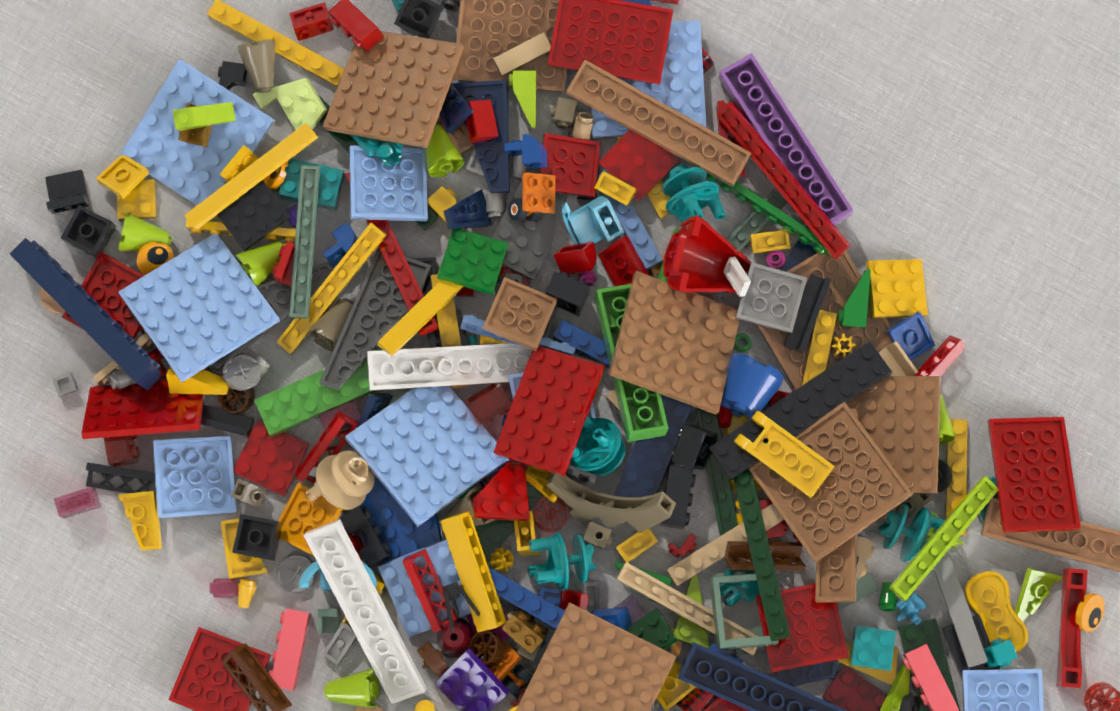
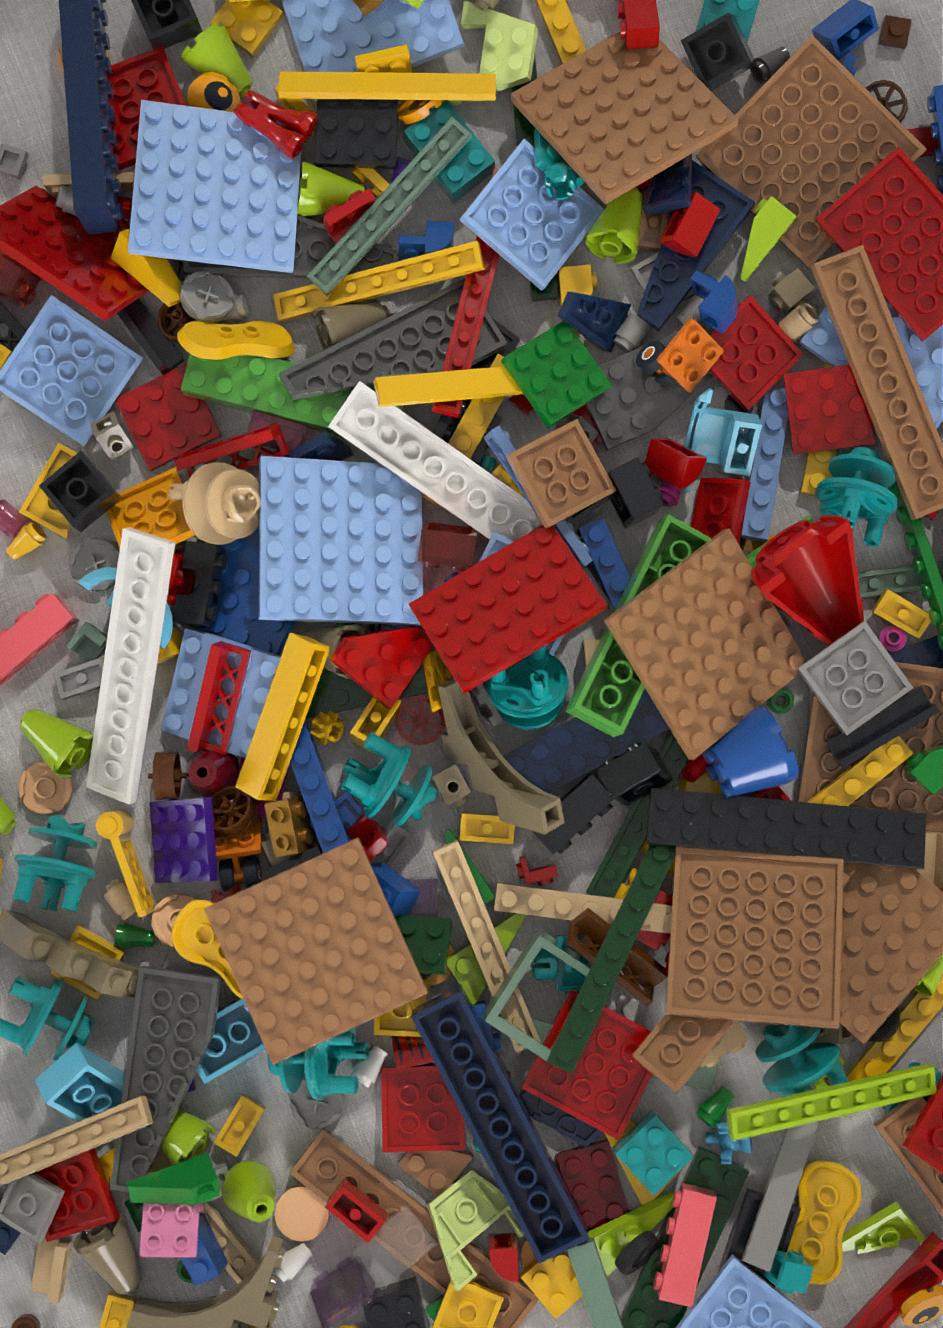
camera: 40 degrees right, 5 degrees up
(193, 245) = (278, 123): none -> red piece
(273, 388) = (223, 341): none -> yellow plate
(451, 593) = (241, 721): black plant -> none
(522, 53) = (797, 187): tan tile -> none
(615, 188) = (779, 418): yellow plate -> none
(737, 276) = (836, 624): white tile -> none
(787, 456) = (730, 869): yellow hinge -> none
(837, 345) = (885, 790): yellow gear -> none

